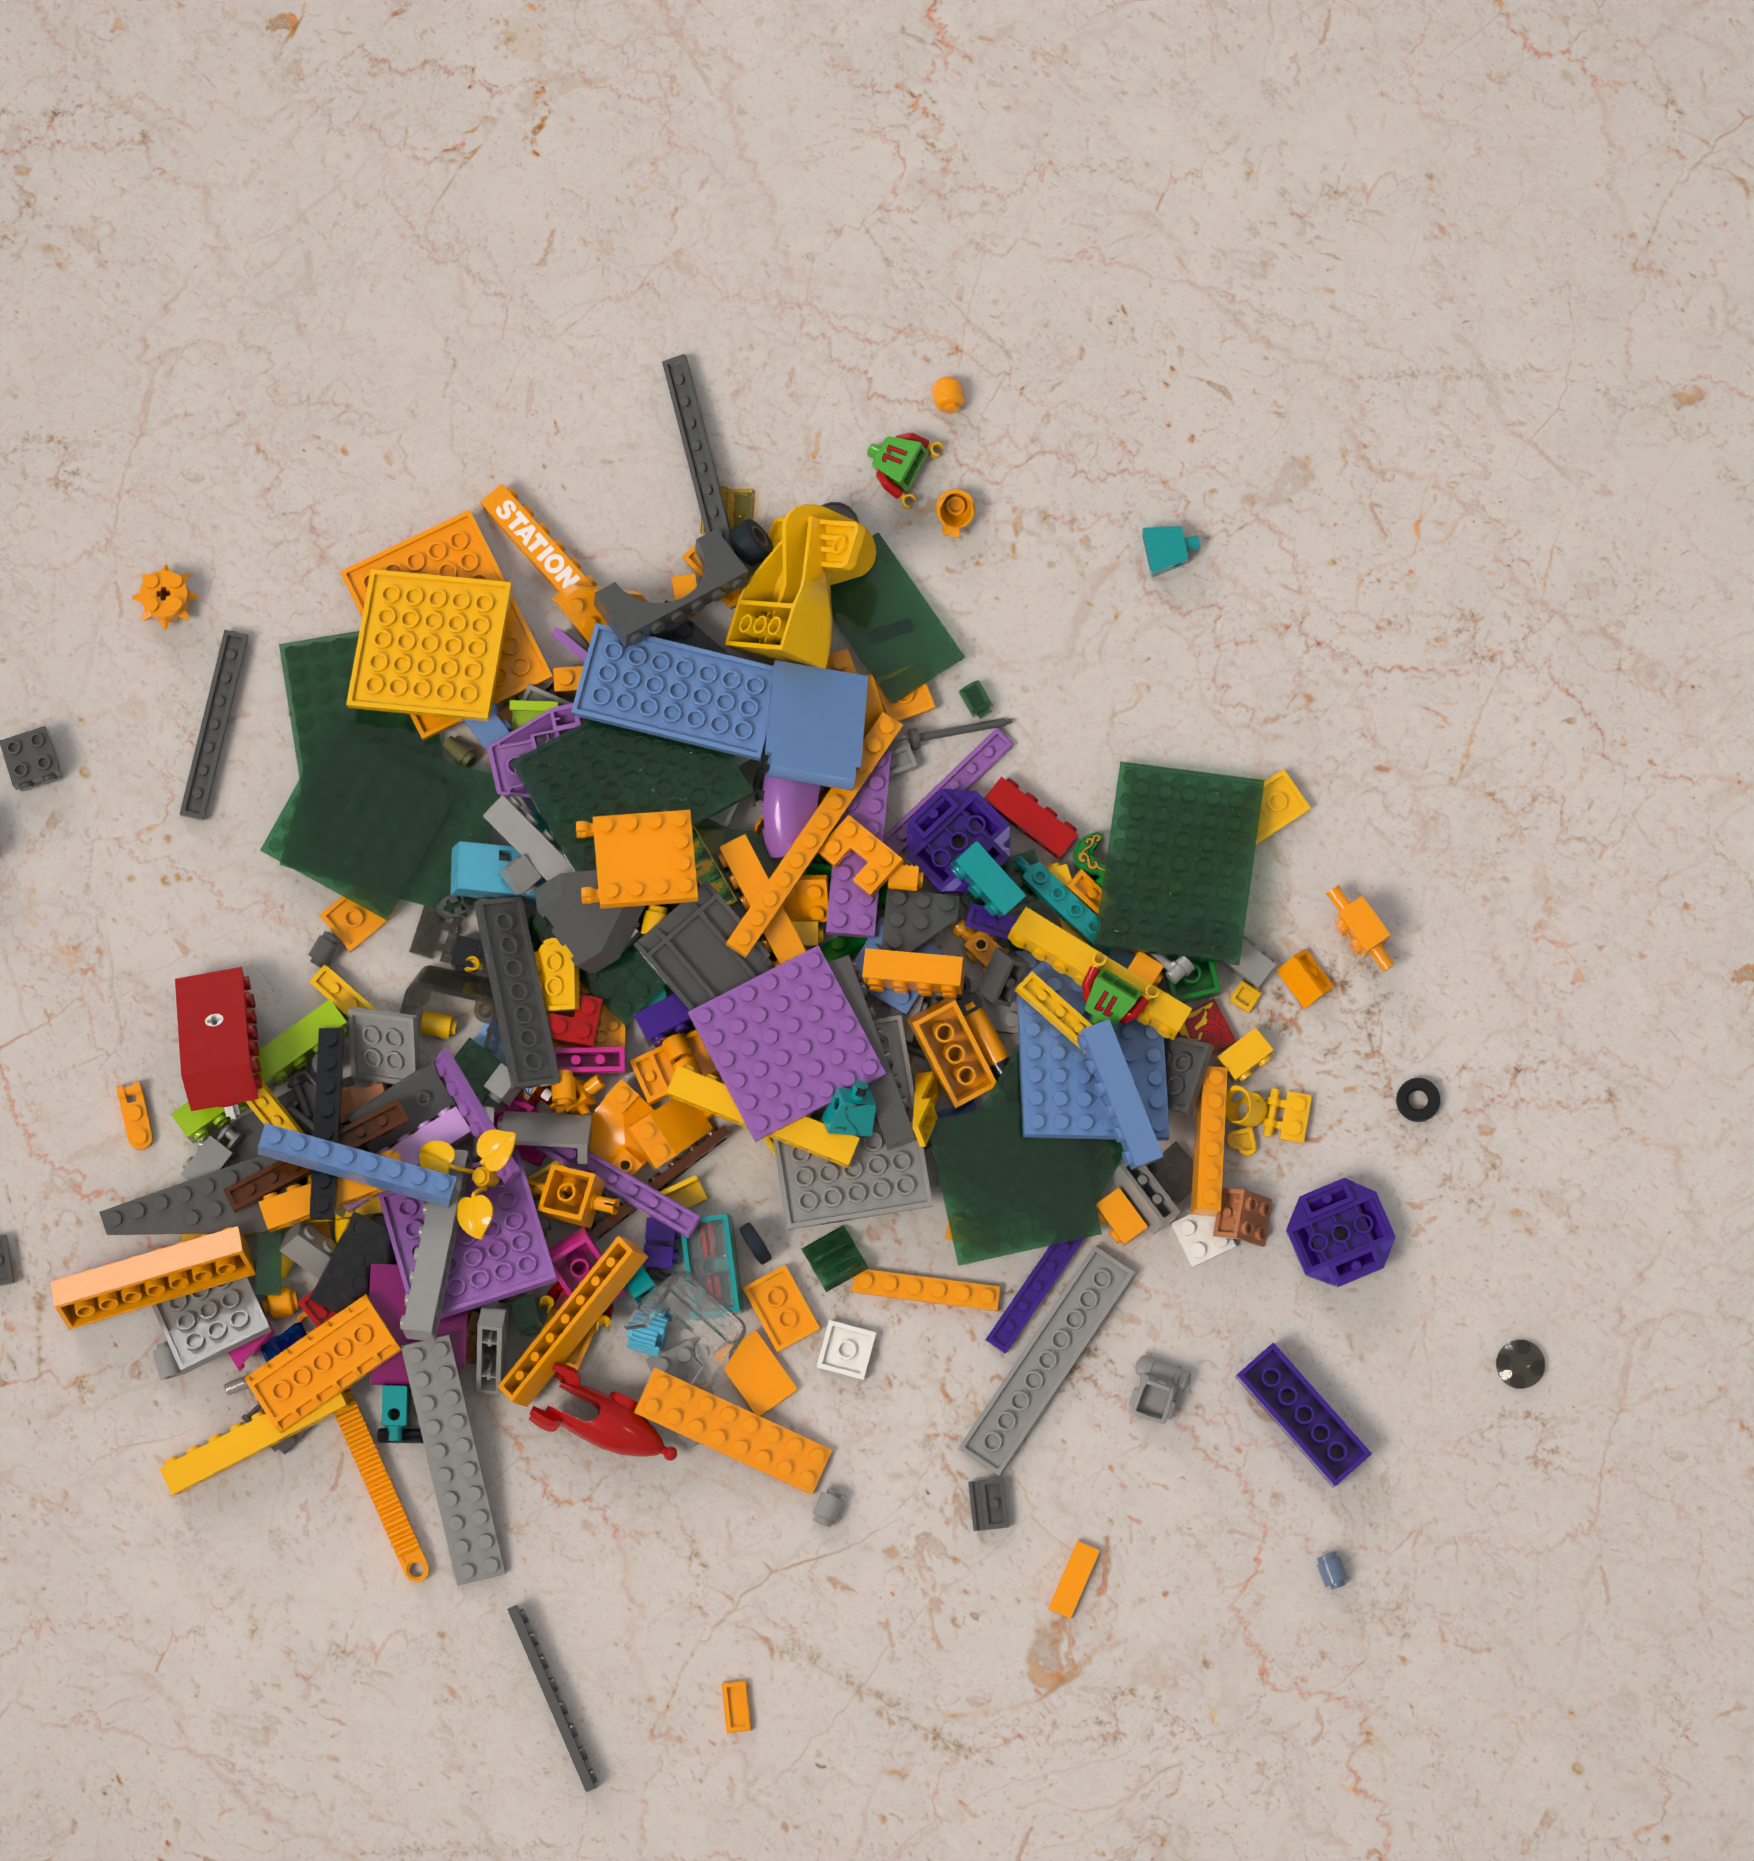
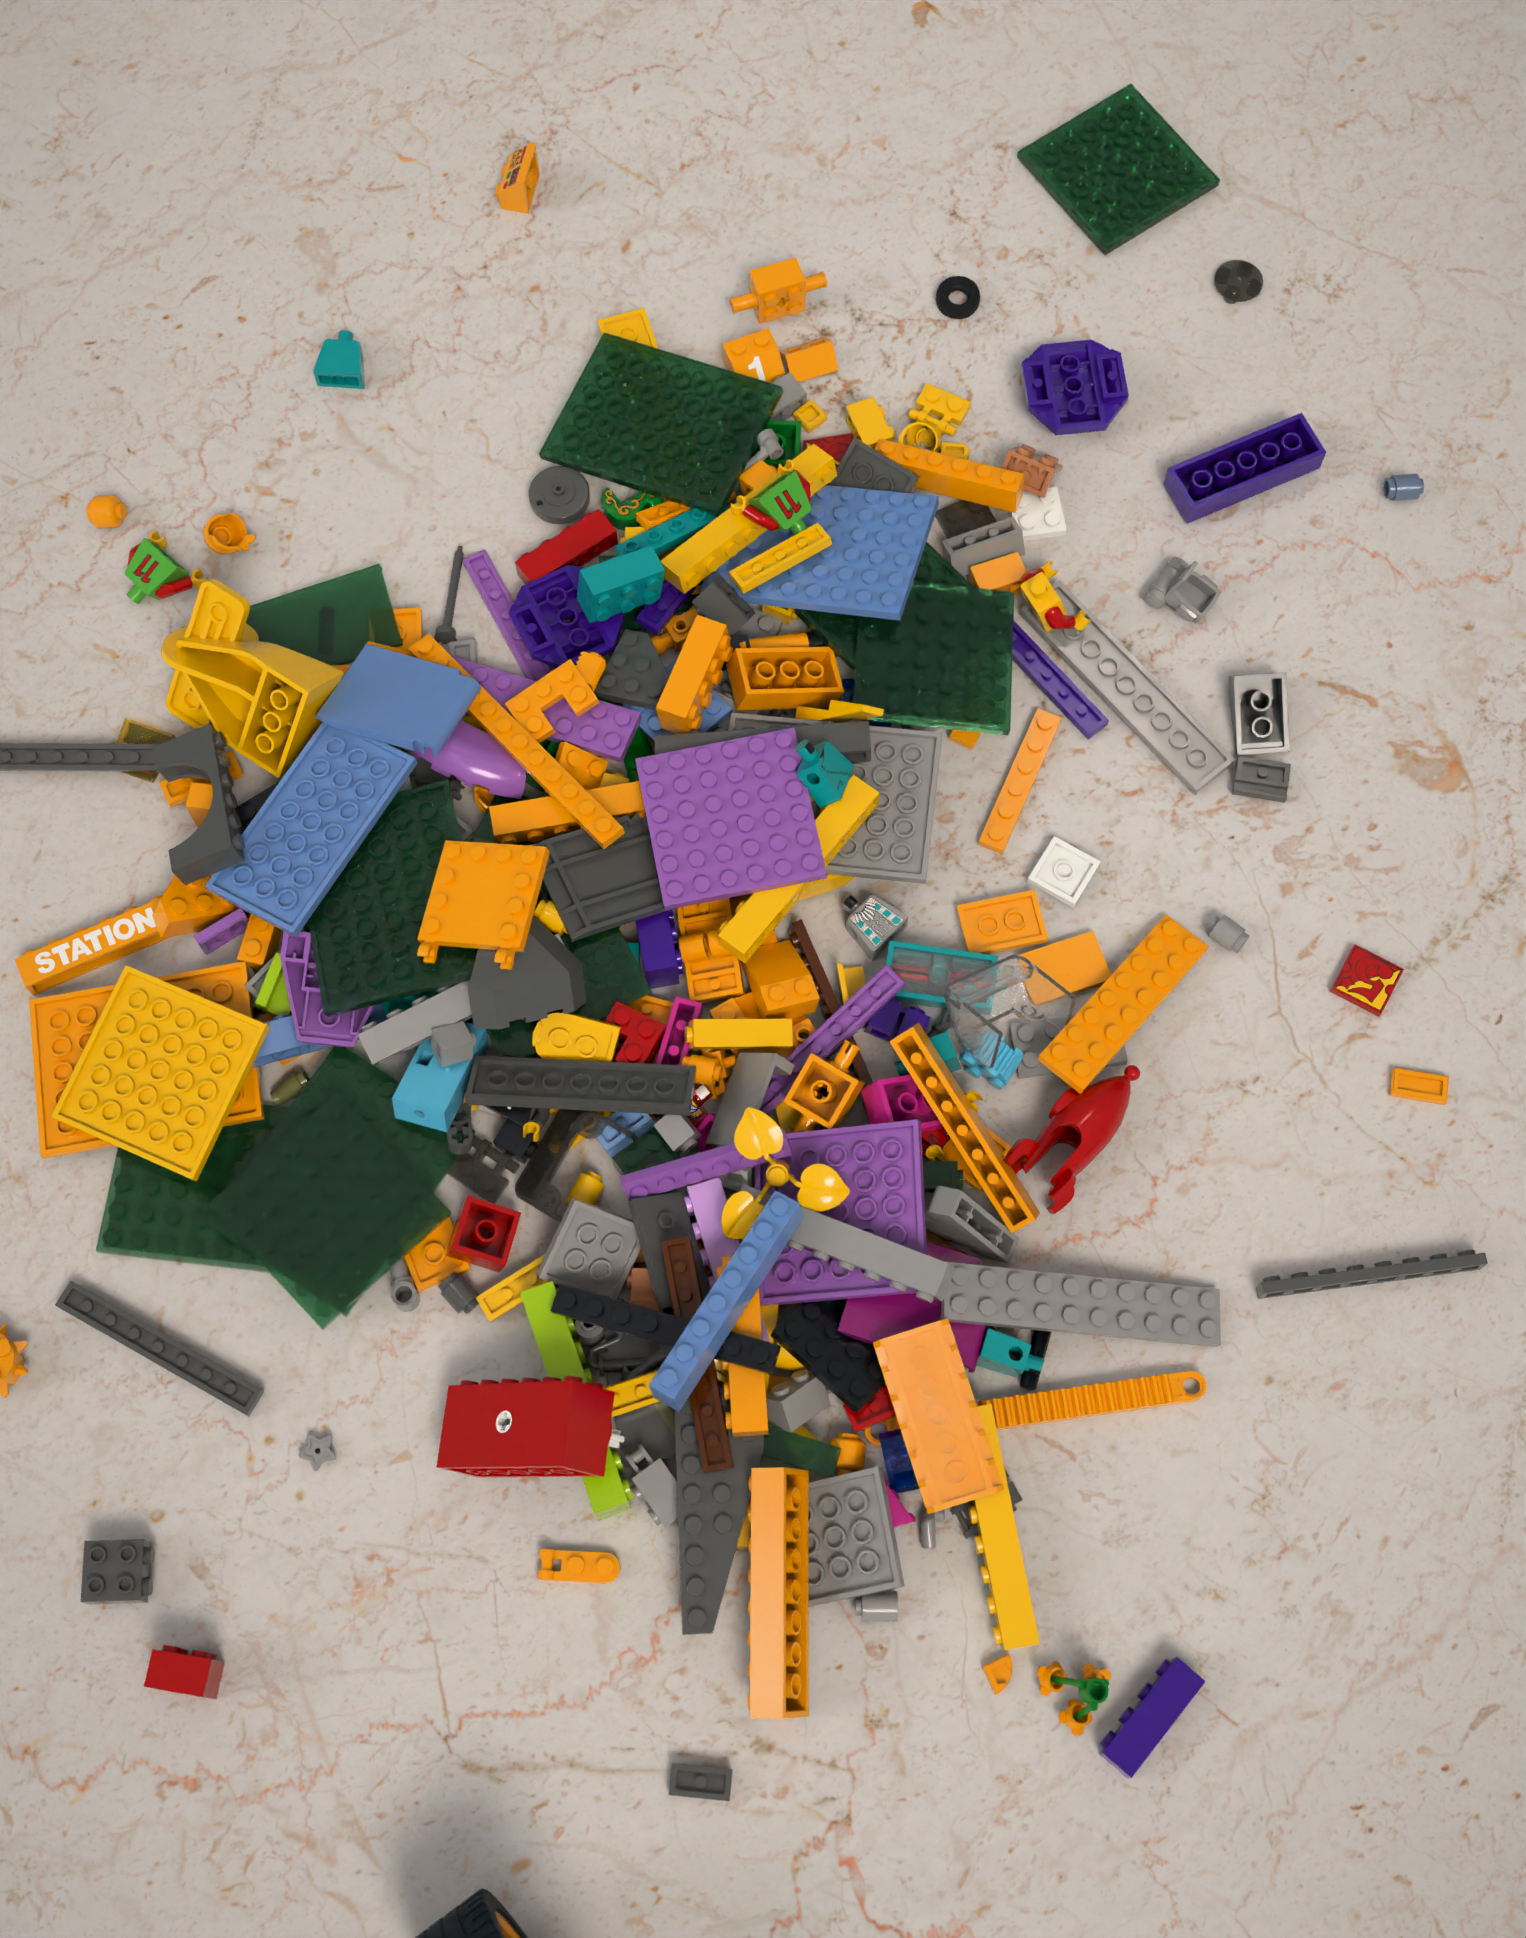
camera: 75 degrees left, 10 degrees down
(141, 1599) = (1151, 1717): none -> dark purple brick
(143, 1542) = (1091, 1689): none -> plant
(144, 1471) = (999, 1673): none -> light orange tile
(167, 887) = (324, 1455): none -> light grey plate
(321, 898) = (400, 1283): none -> light grey pin
(376, 953) = (483, 1234): none -> red brick
(603, 1110) = (739, 1034): none -> yellow brick
(747, 1196) = (873, 923): none -> torso
(750, 542) = (178, 725): black wheel -> none
(755, 1243) = (926, 926): black bush -> none
(821, 1640) = (1366, 980): none -> tile
(834, 1258) = (963, 857): clear green slope -> none
(976, 699) = (427, 569): clear green brick -> none
(1054, 1487) = (1259, 713): none -> slope
(1073, 1579) = (1357, 722): light orange tile -> none
(1087, 793) = (559, 495): none -> dark grey wheel
(1099, 1262) = (1046, 602): none -> torso
(1119, 1094) = (885, 516): medium blue brick -> none
(1281, 929) = (754, 356): none -> light orange slope
(1415, 645) = (519, 180): none -> light orange slope
(1614, 1216) = (1118, 169): none -> clear green plate

